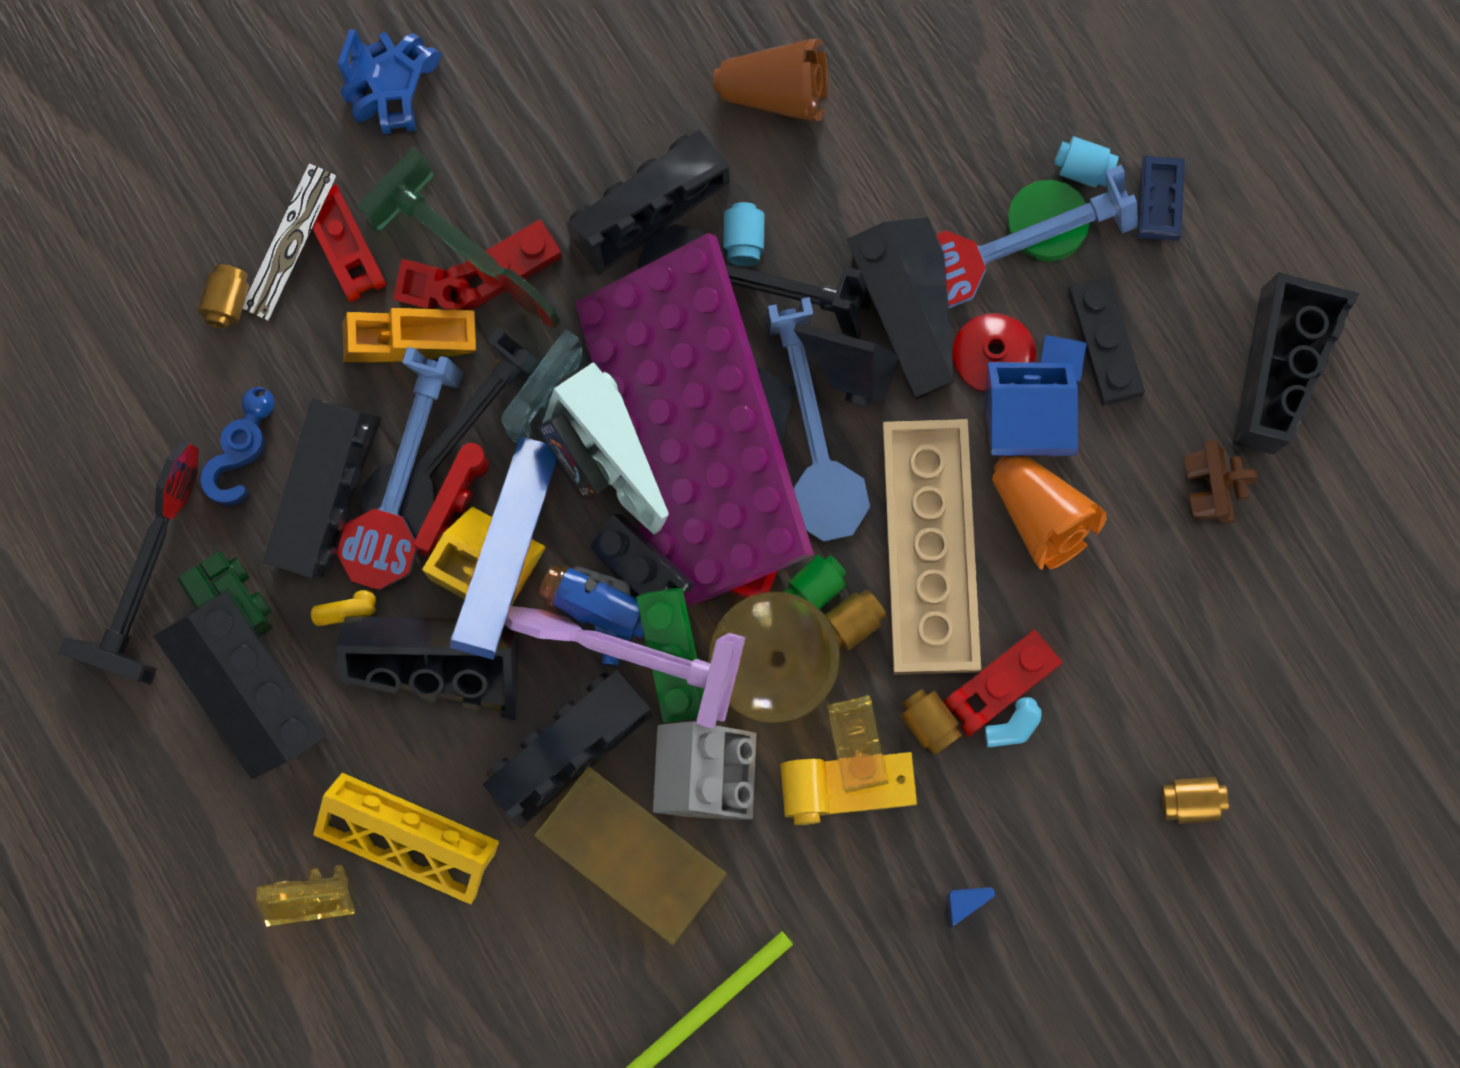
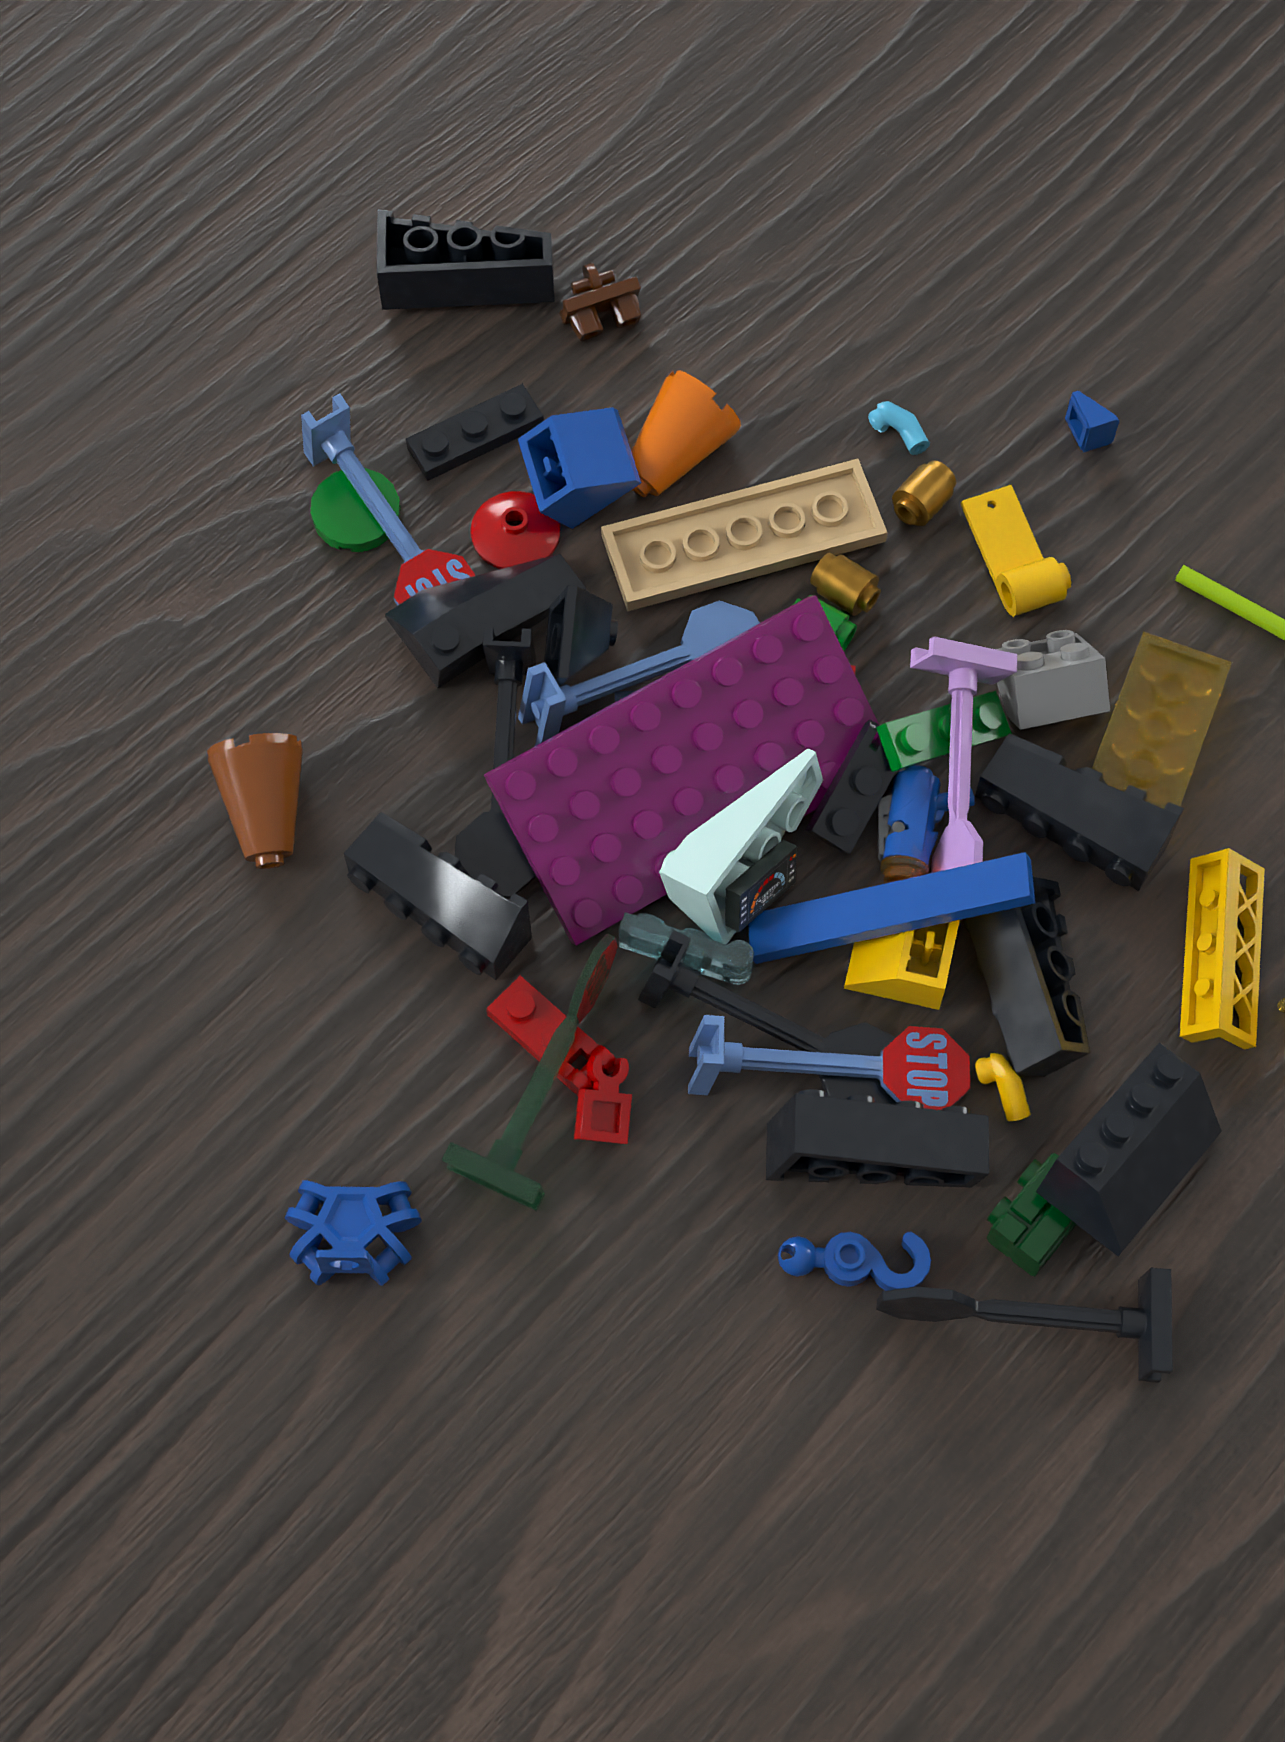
camera: 110 degrees left, 10 degrees down
(223, 296) = (680, 1336): pearl gold brick -> none
(288, 241) = (589, 1282): sticker -> none
(345, 246) = (572, 1222): red plate -> none
(387, 335) = (668, 1114): light orange slope -> none
(453, 497) = (845, 1004): red plate -> none
(743, 234) = (451, 789): medium azure brick -> none
(811, 652) = (907, 609): clear yellow dish -> none
(857, 744) = (974, 541): clear yellow plate -> none
(1003, 682) = (851, 438): red plate -> none
(1064, 351) = (505, 466): blue tile -> none
(1084, 162) = (283, 484): medium azure brick -> none
(1161, 198) = (284, 409): dark blue plate -> none
(1194, 800) = (920, 263): pearl gold brick -> none

